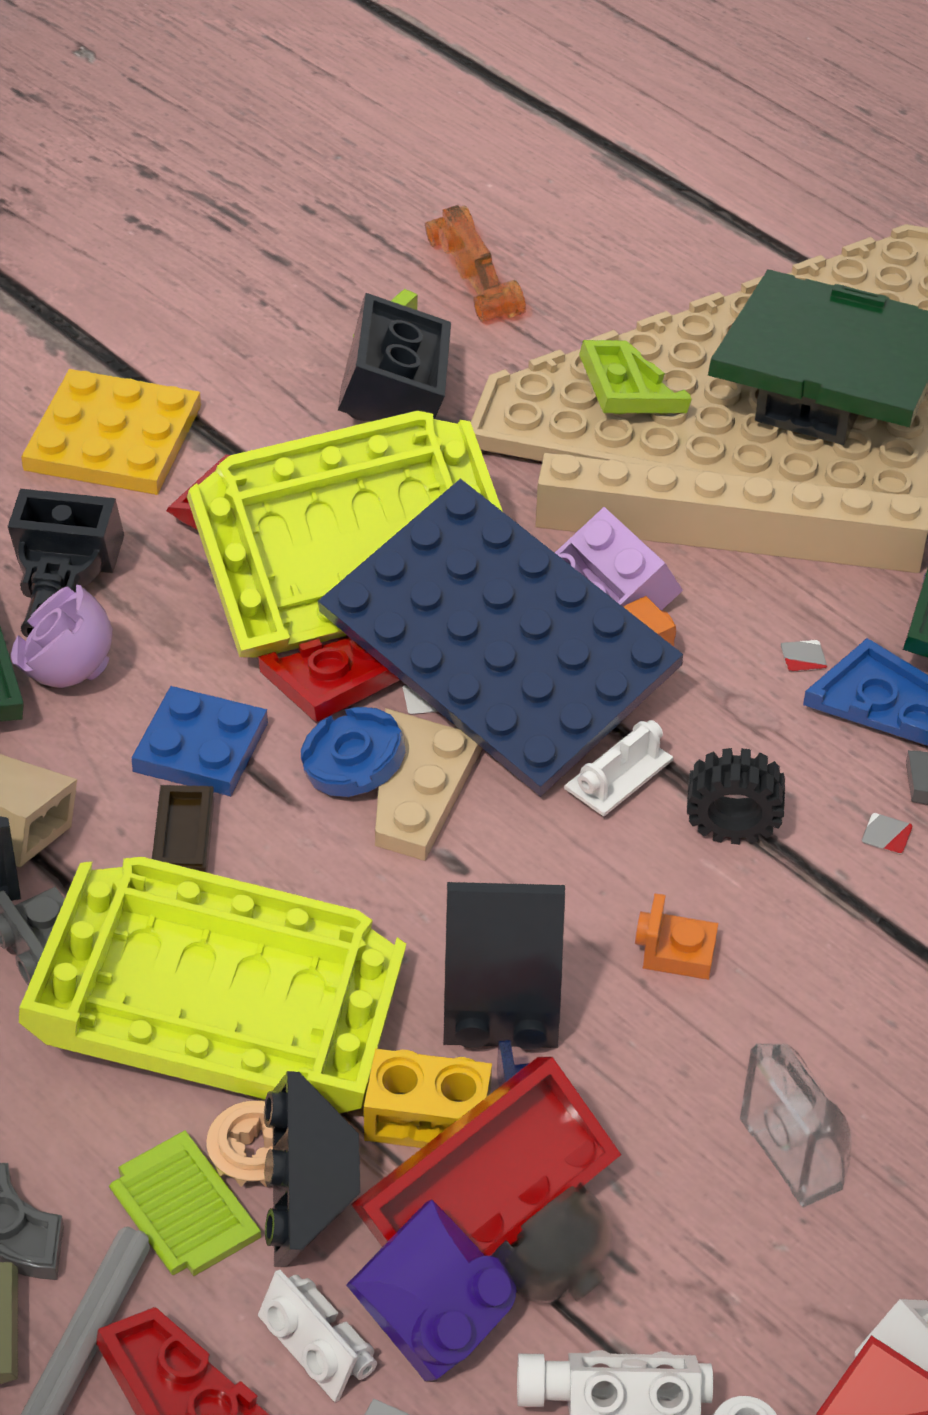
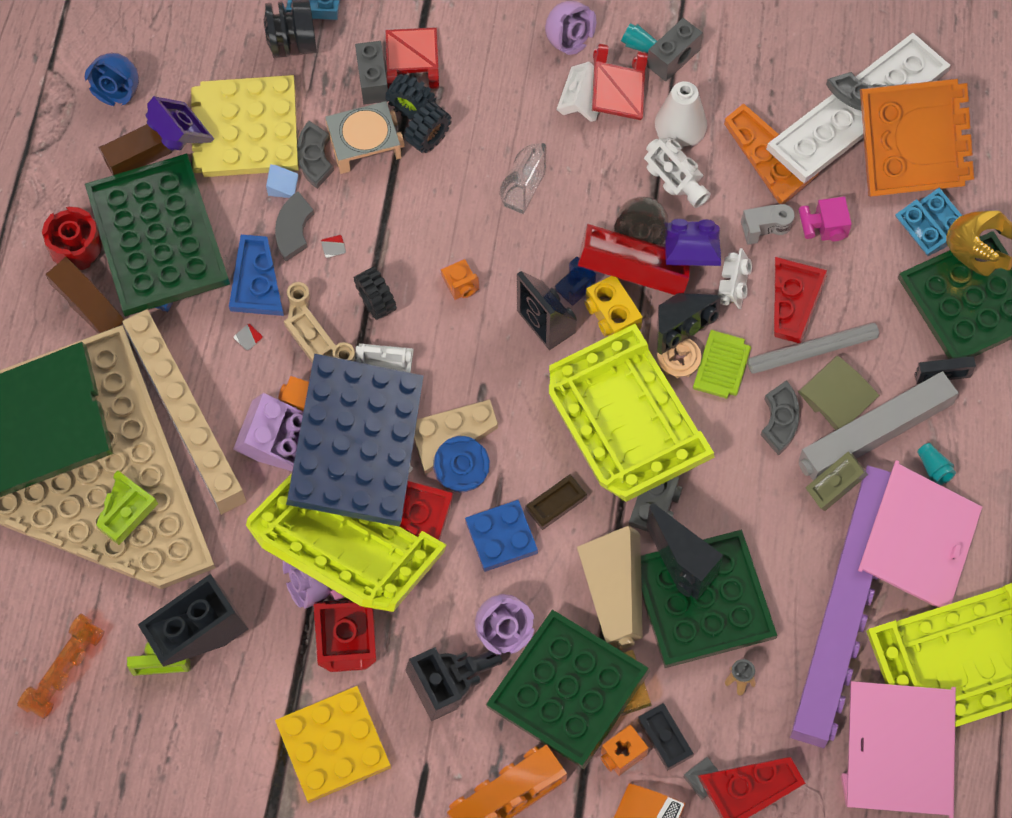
camera: 125 degrees left, 20 degrees up
(741, 708) = (308, 331): none -> tan plate

